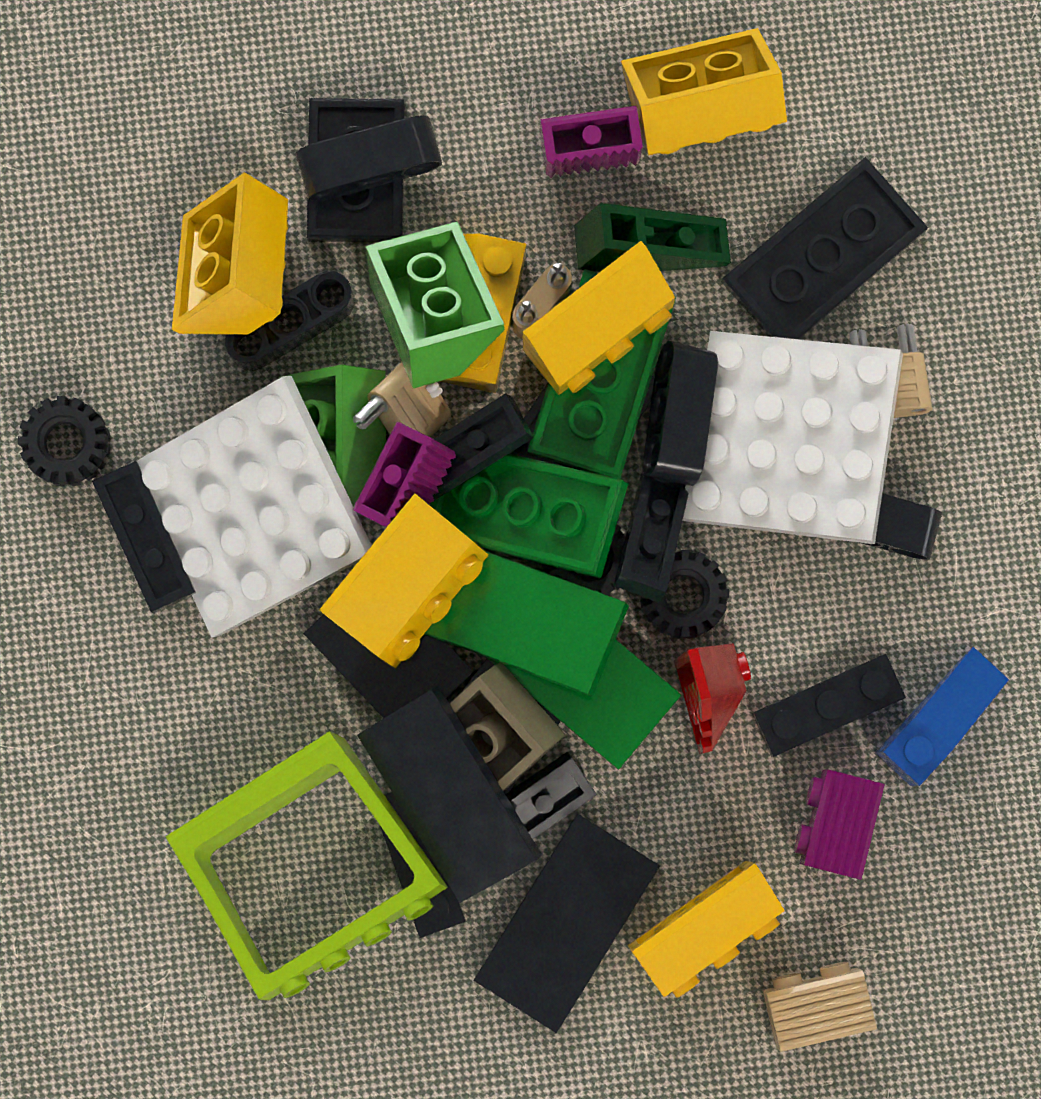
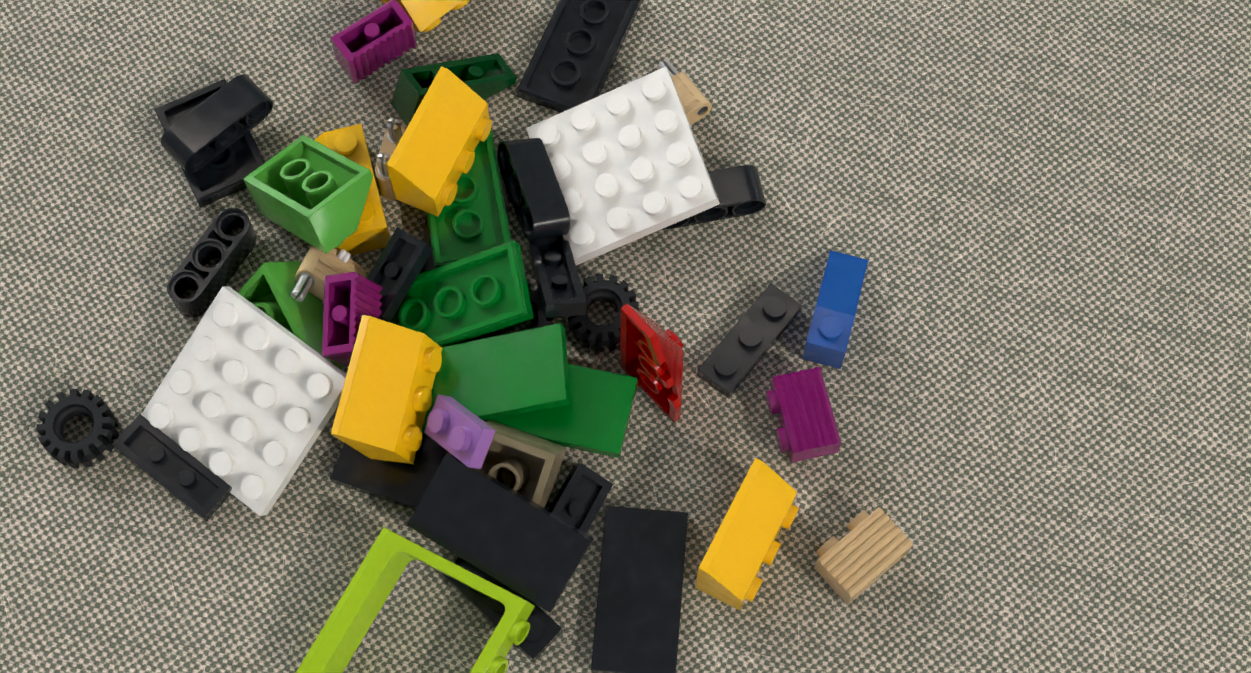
camera: 25 degrees left, 15 degrees down
(231, 260) = (146, 235): yellow slope -> none
(457, 670) = (459, 431): none -> medium lavender plate

